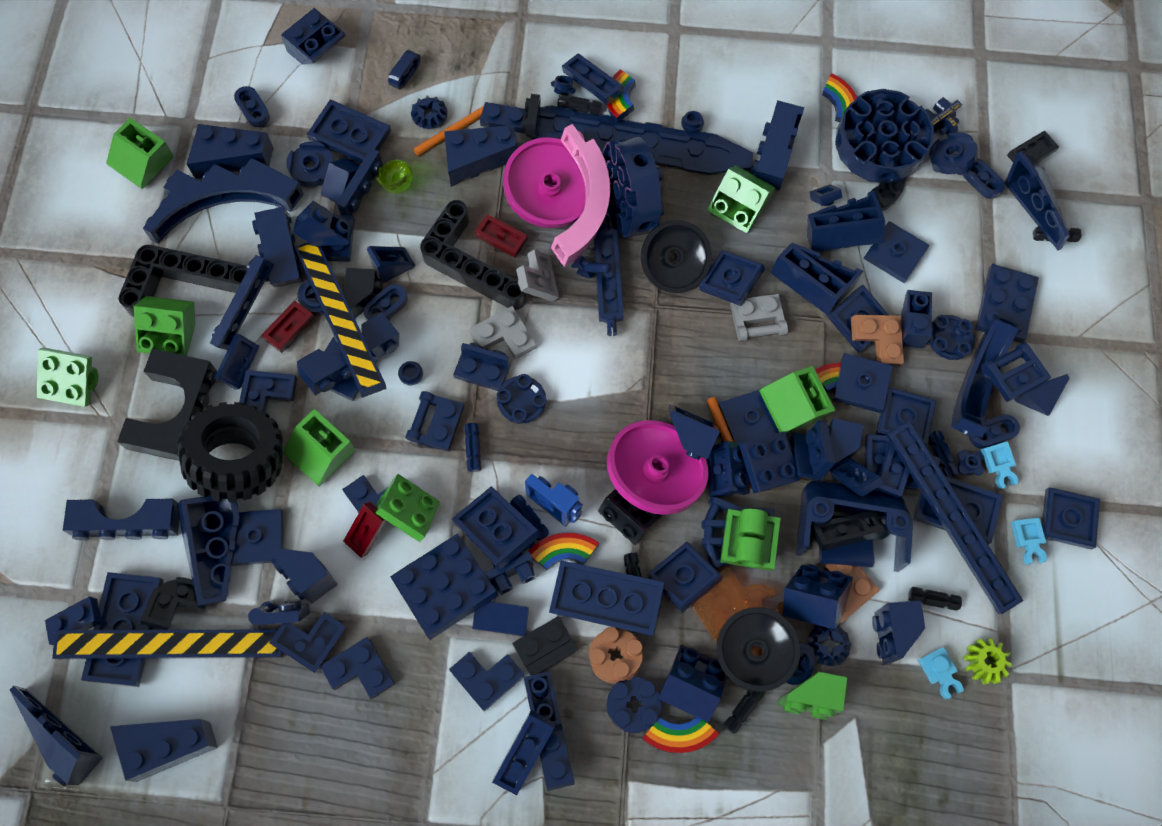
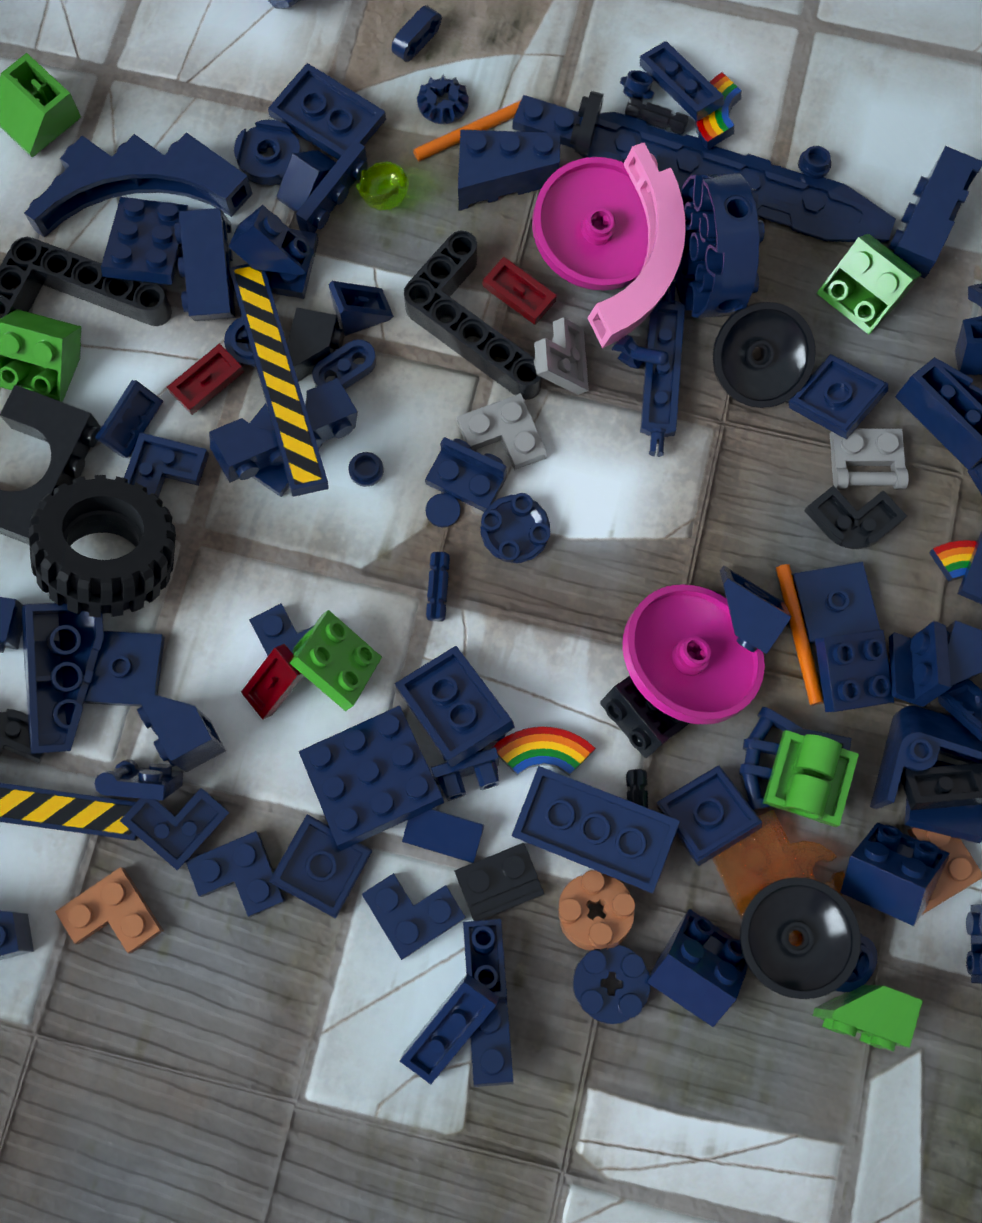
camera: 10 degrees right, 5 degrees up
(227, 148) = (155, 115): dark blue wedge -> none
(230, 236) = (143, 241): none -> dark blue plate
(253, 108) = (199, 61): dark blue plate -> none
(256, 274) = (146, 336): dark blue plate -> none
(270, 703) = (111, 902): none -> nougat plate
(318, 447) = (223, 556): bright green slope -> none
(414, 656) = (317, 869): none -> dark blue plate
(443, 424) = (400, 548): dark blue plate -> none
(469, 394) = (442, 510): none -> dark blue piece
(519, 504) = (492, 677): dark blue axle -> none
(559, 502) = (548, 684): blue plate -> none
(680, 737) = (670, 1041): tile -> none
(727, 471) = (791, 673): dark blue bracket -> none
(742, 711) = (761, 1018): black axle -> none
(755, 365) = (852, 527): none -> black plate
(797, 400) = (907, 587): bright green slope -> none
(822, 653) = (889, 954): dark blue gear -> none

